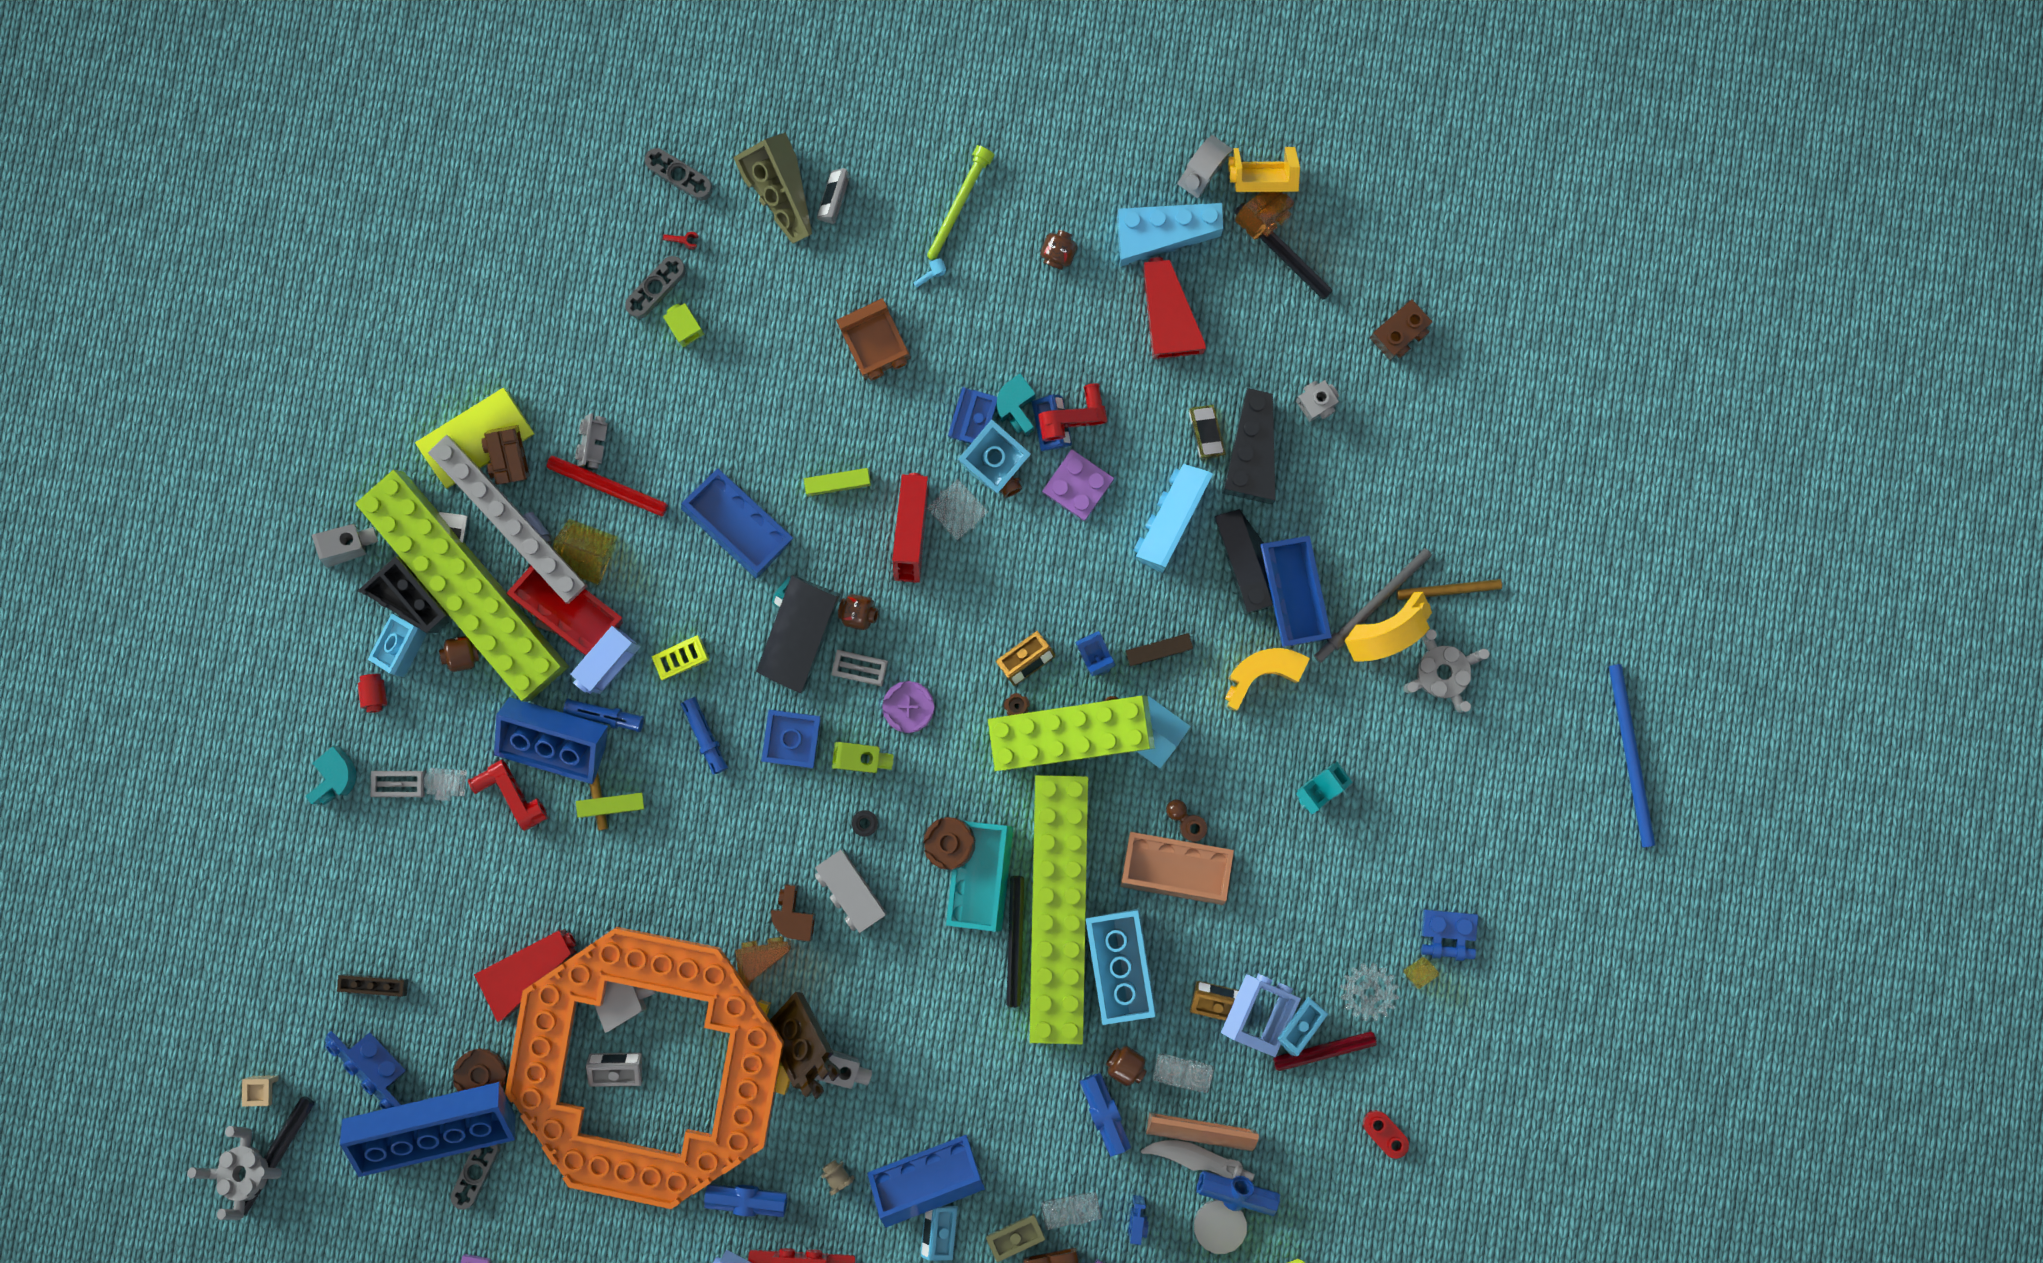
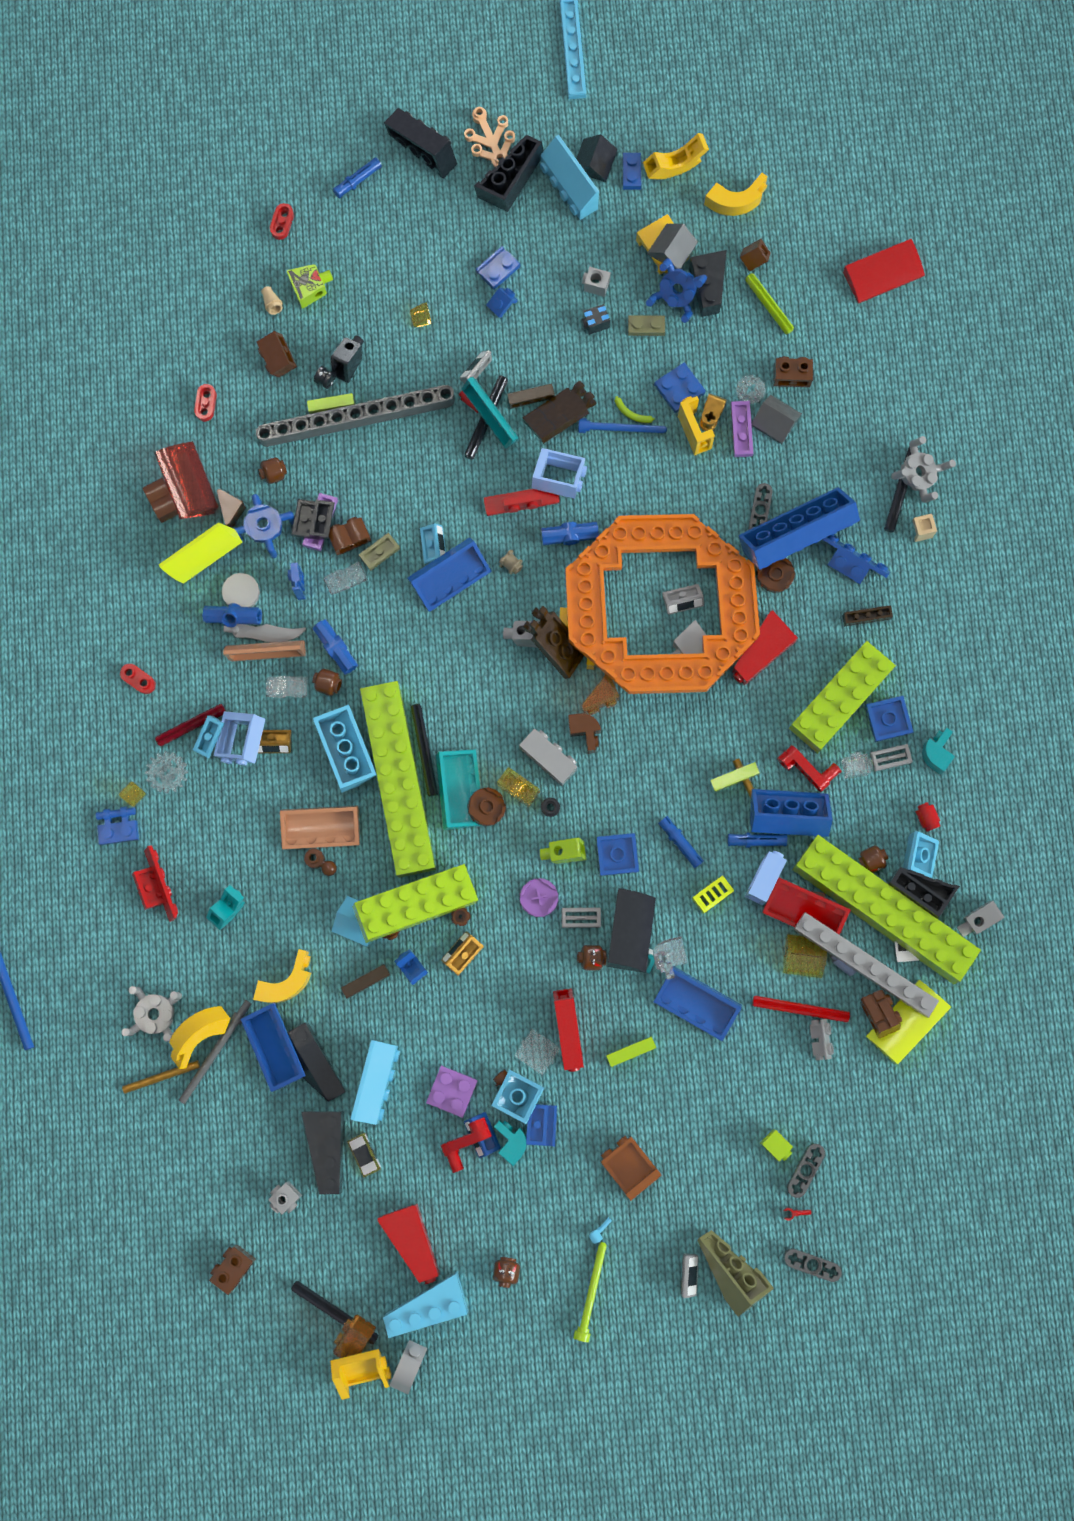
camera: 165 degrees right, 5 degrees down
(384, 836) = (889, 718): none -> blue plate
(437, 880) = (842, 697): none -> lime brick
(757, 591) = (669, 954): none -> clear brick
(900, 858) = (518, 787): none -> clear yellow brick
(1415, 840) = (152, 886): none -> red bracket

